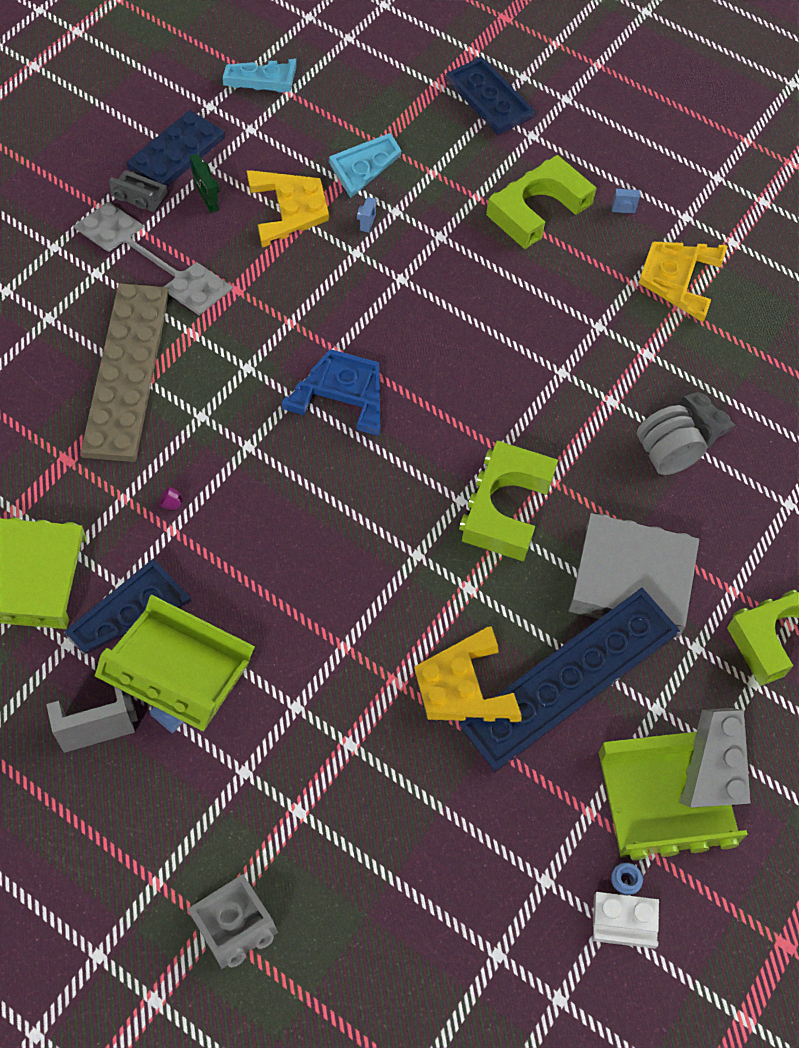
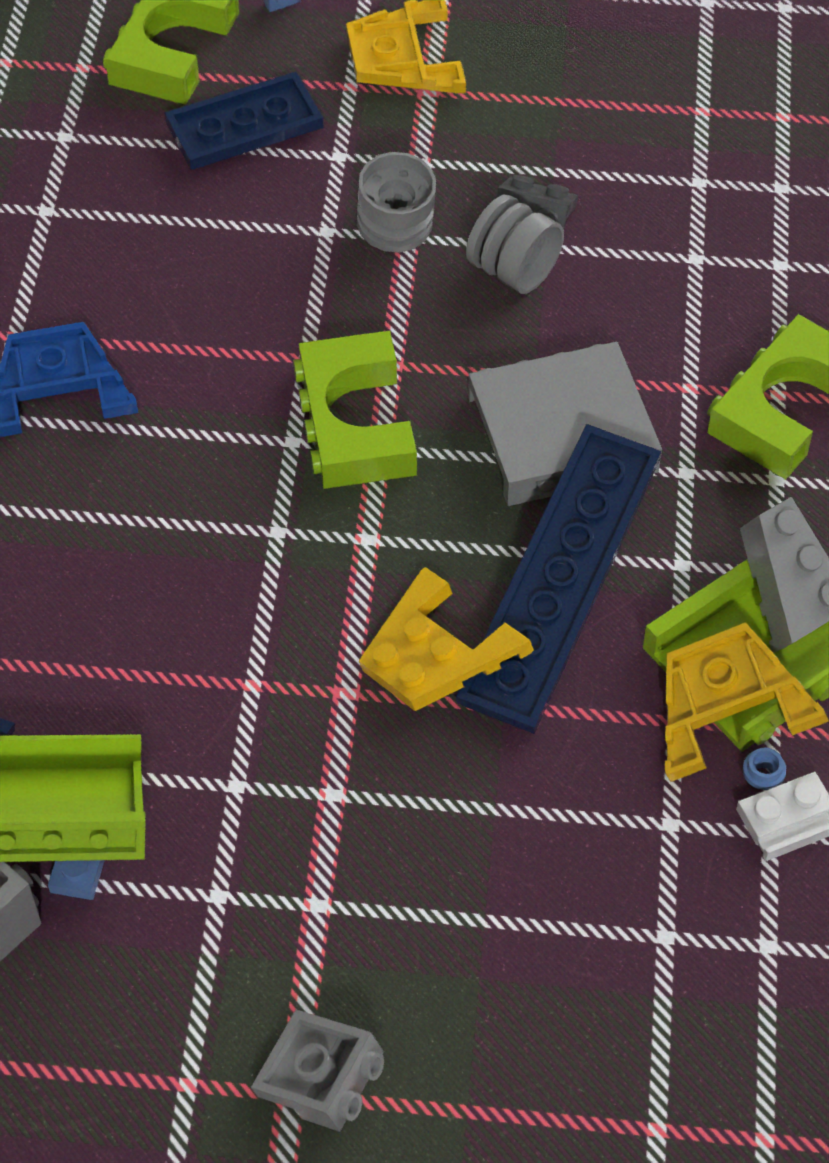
camera: 25 degrees left, 5 degrees down
(552, 276) = (243, 120): none -> dark blue plate
(612, 375) = (396, 201): none -> light grey wheel
(630, 804) = (722, 679): none -> yellow wing

